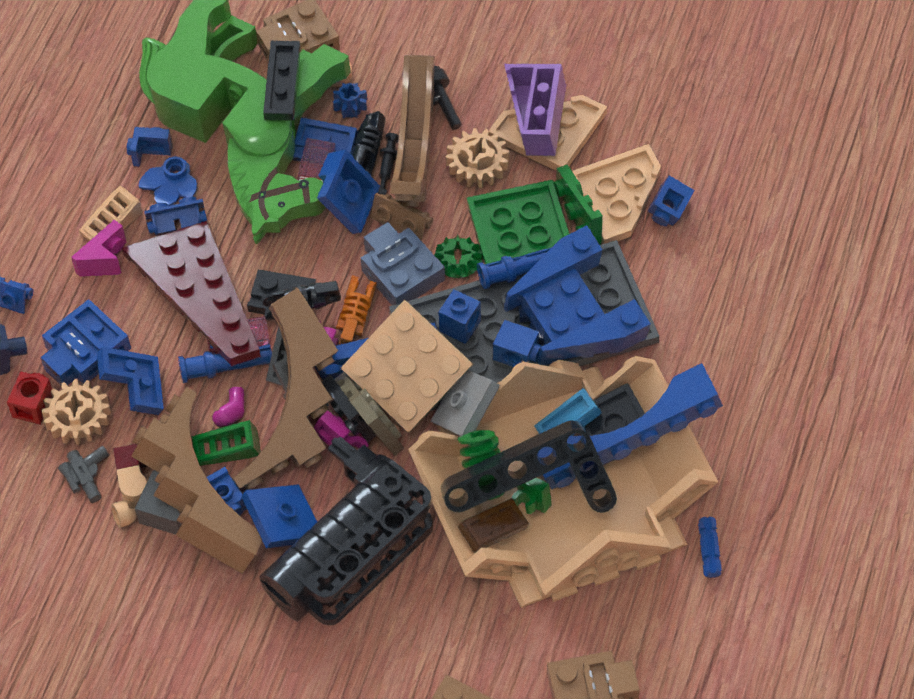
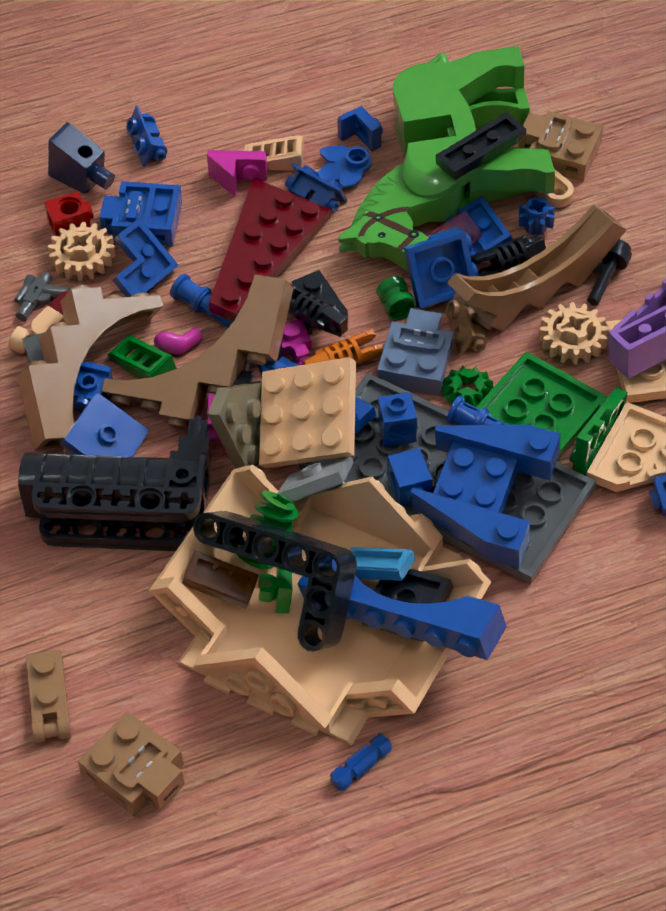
camera: 50 degrees right, 5 degrees down
(336, 240) = (395, 296): none -> green wheel

